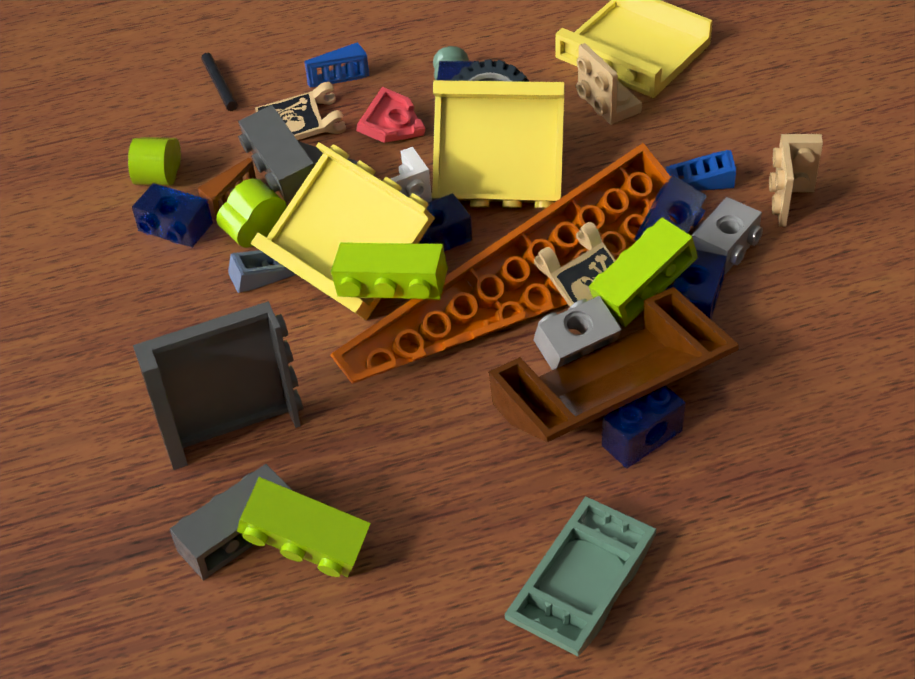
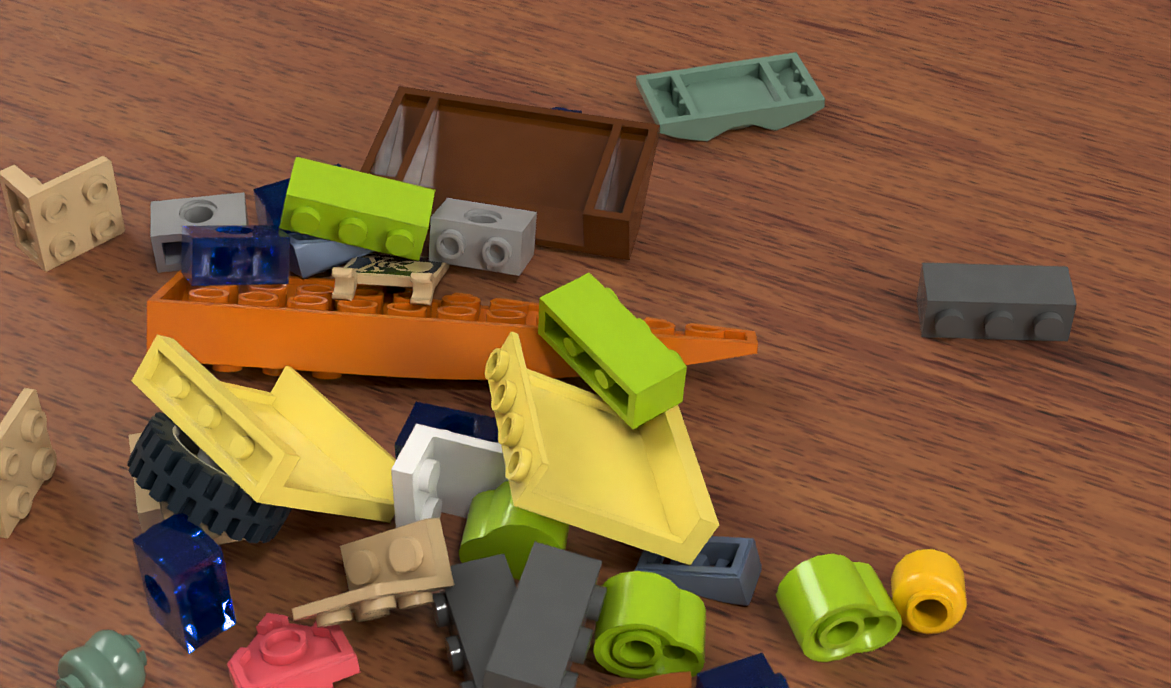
camera: 140 degrees left, 5 degrees down
(138, 316) = (929, 591): none -> yellow head
(173, 275) = (837, 608): none -> lime piece
(219, 377) = (928, 339): dark grey panel -> none
(302, 528) = (944, 226): lime brick -> none
(372, 131) = (384, 570): none -> tan bracket
(710, 171) = (81, 289): blue slope -> none

